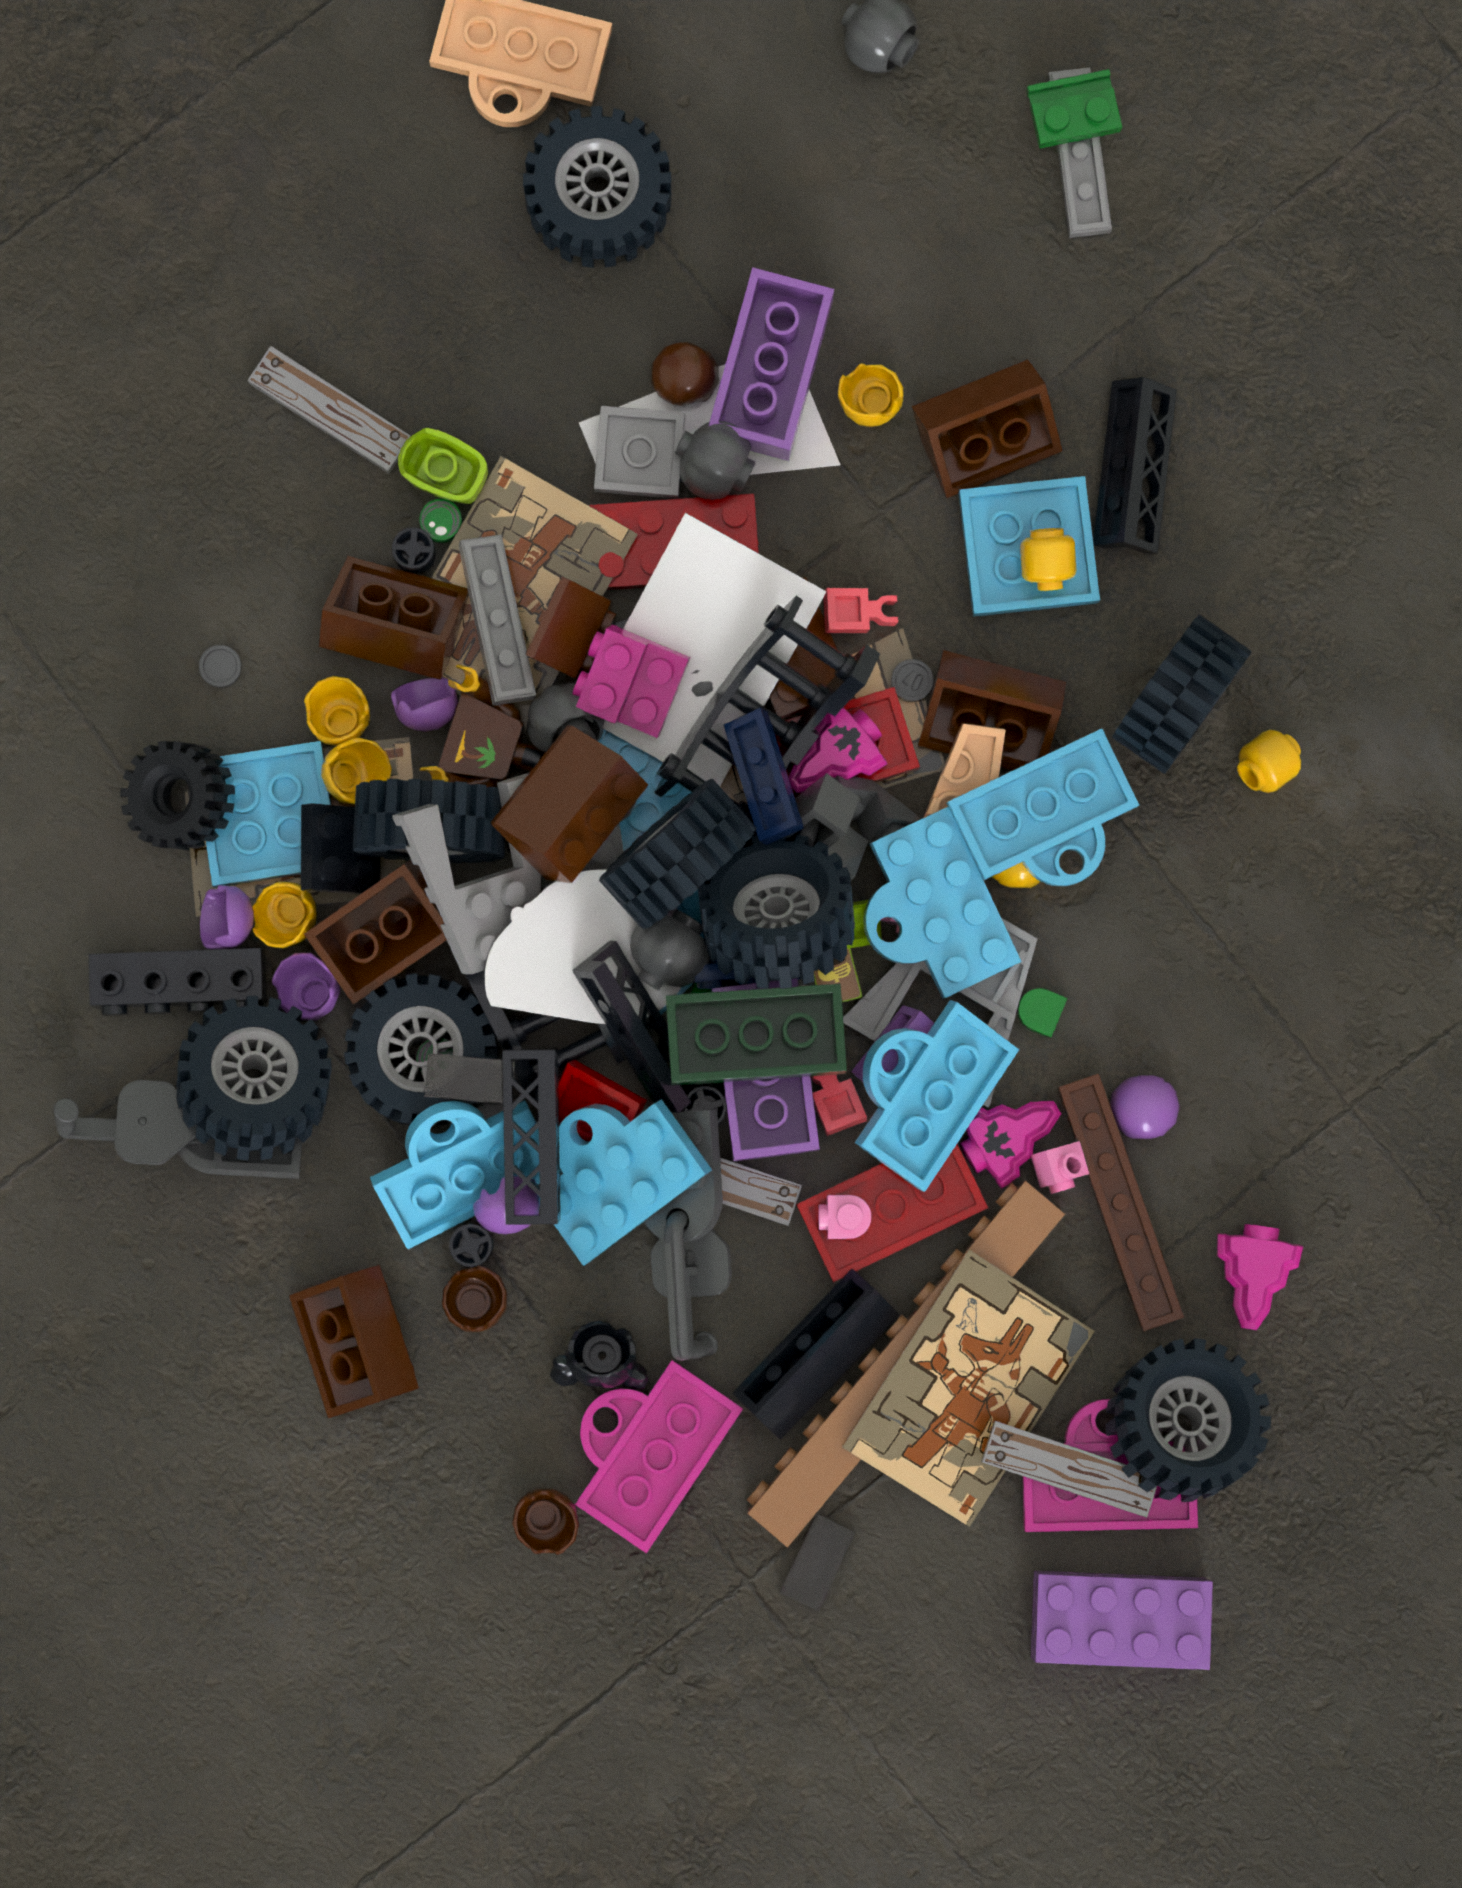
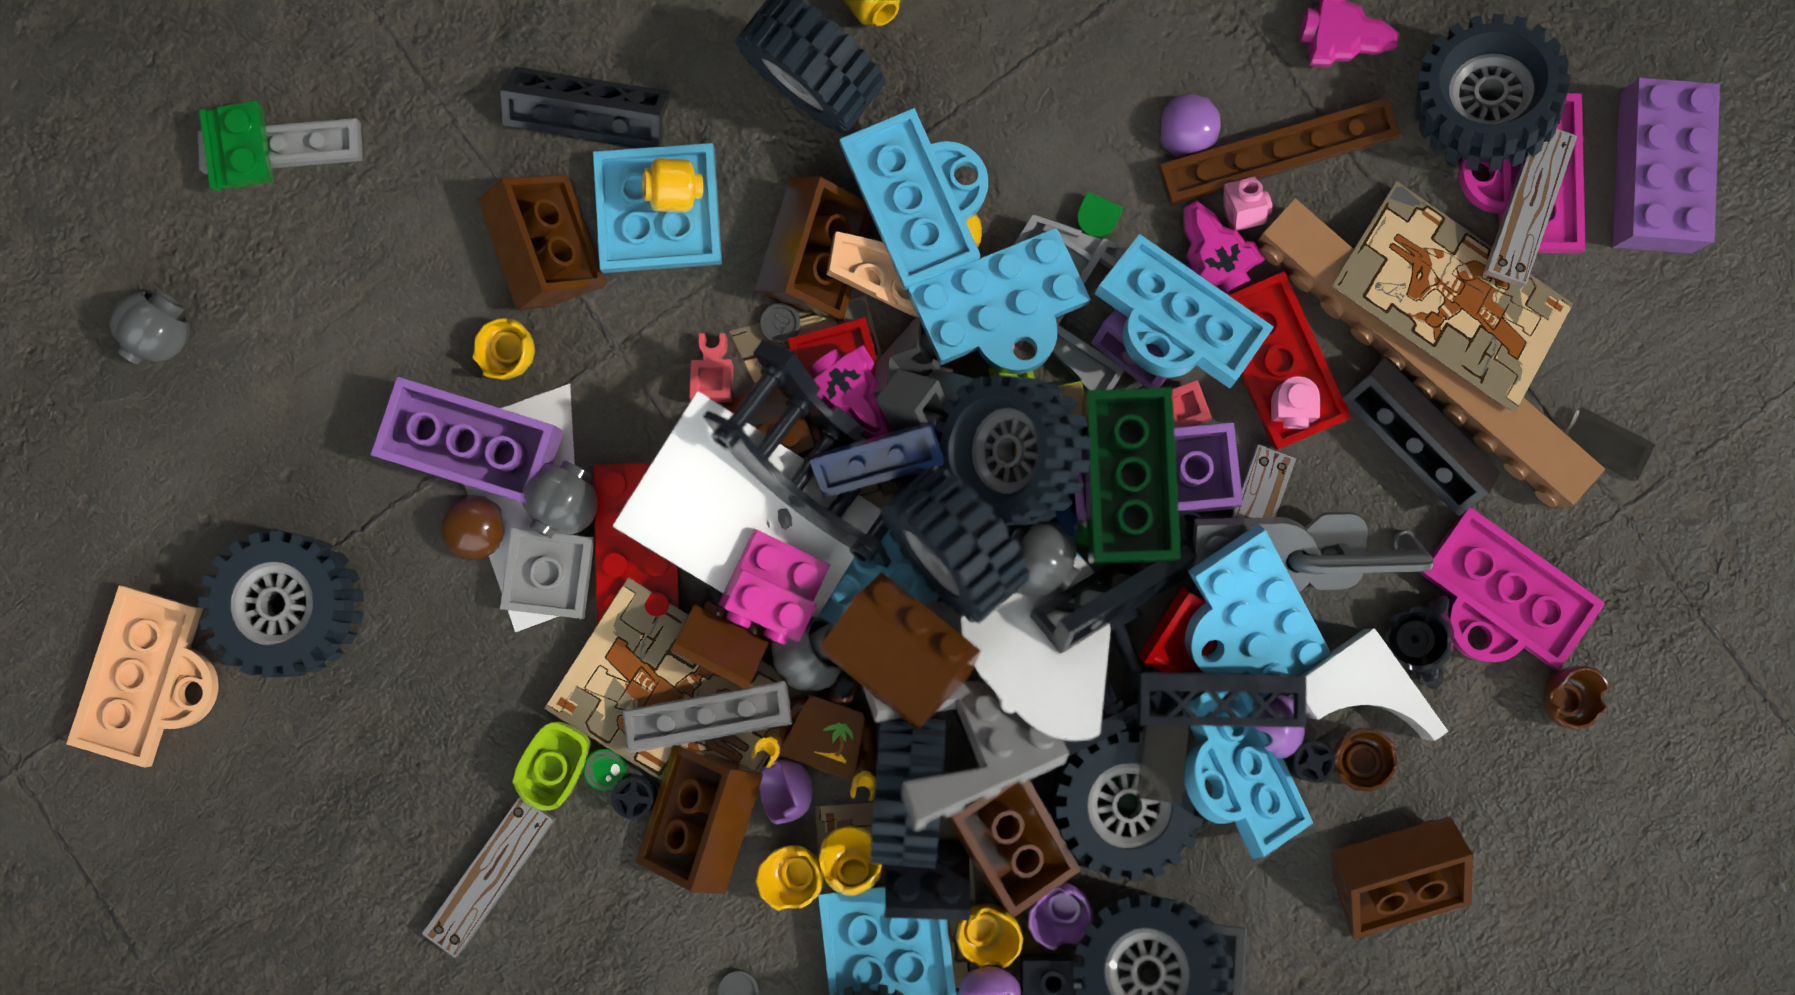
camera: 80 degrees left, 0 degrees up
(561, 1296) = (1368, 674): none -> white arch

